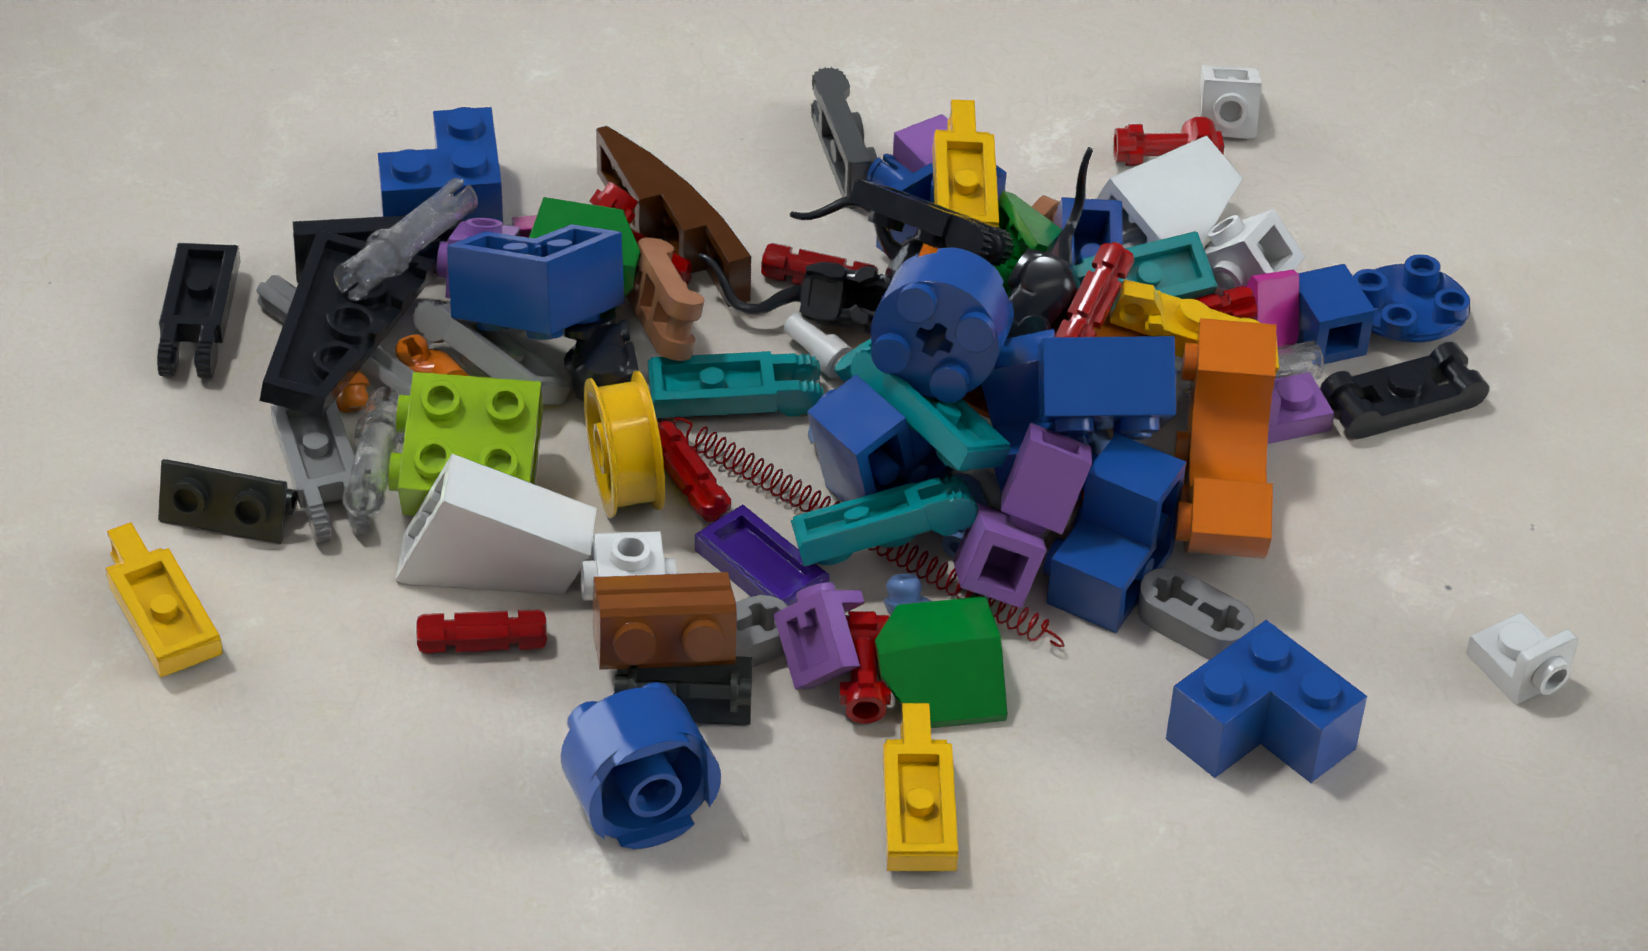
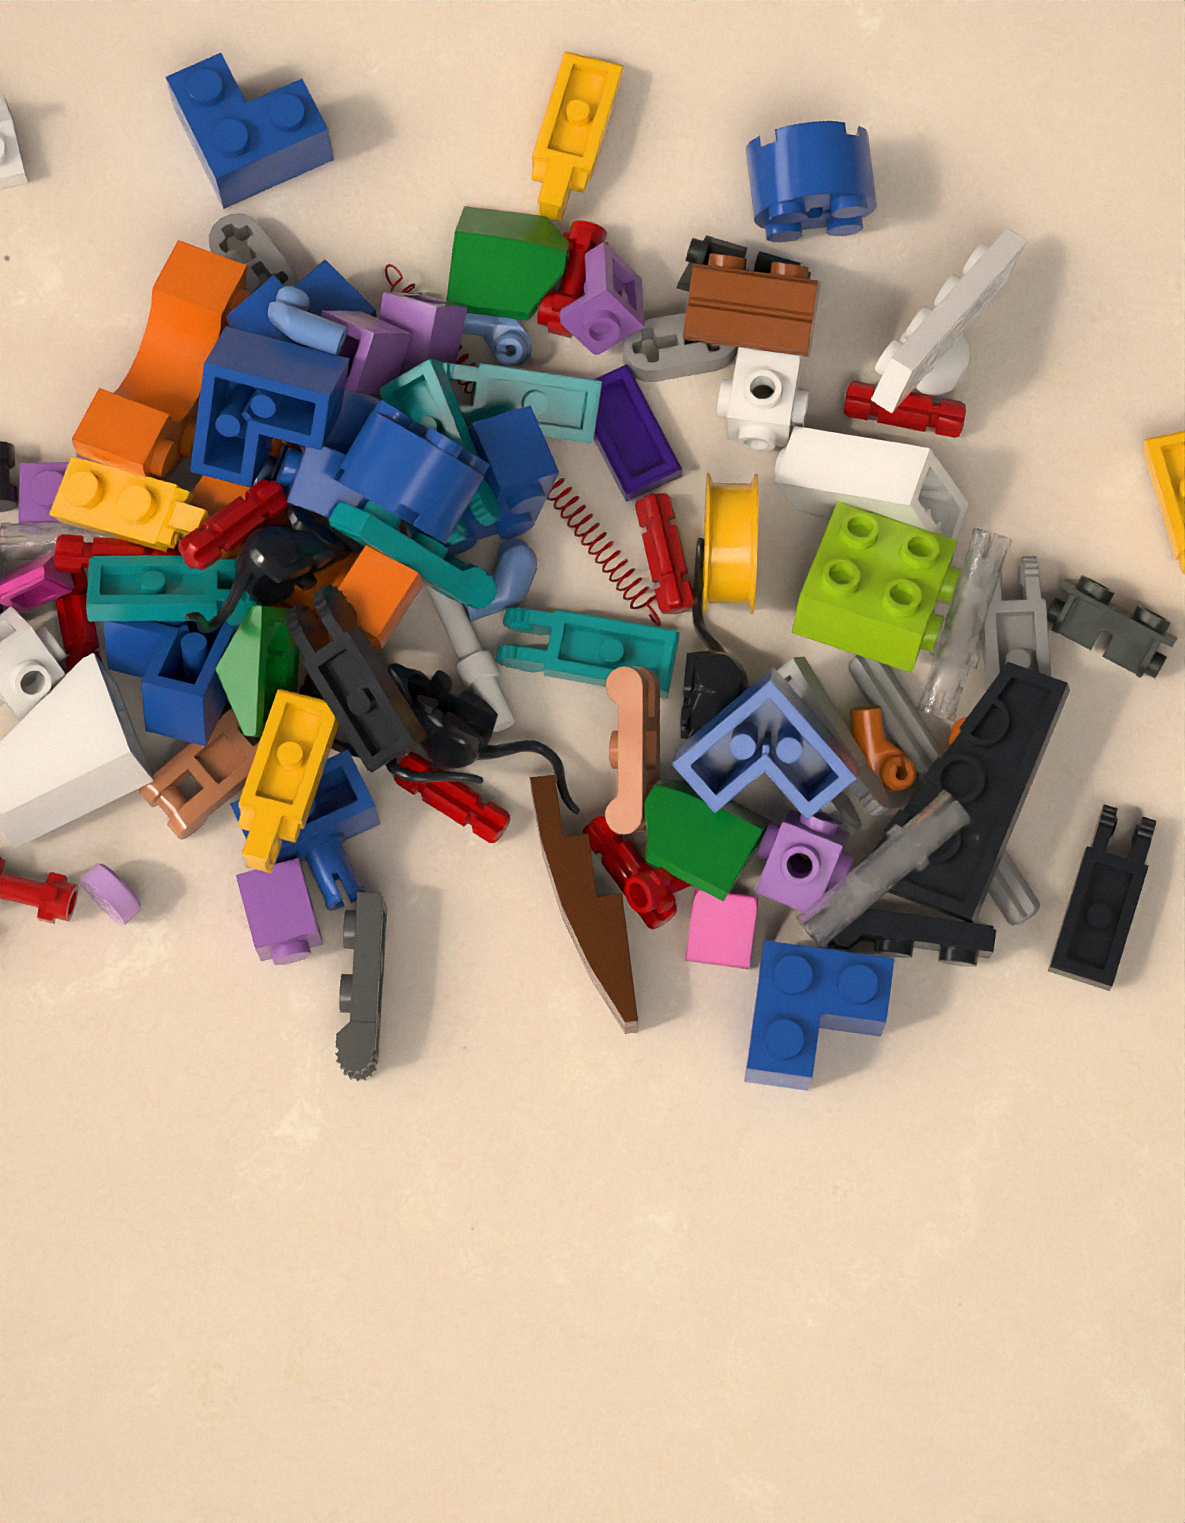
camera: 160 degrees left, 30 degrees up
(461, 652) = (934, 344): none -> white plate
(1074, 143) = (111, 893): none -> lavender tile
(1111, 441) = (291, 318): none -> medium blue arm

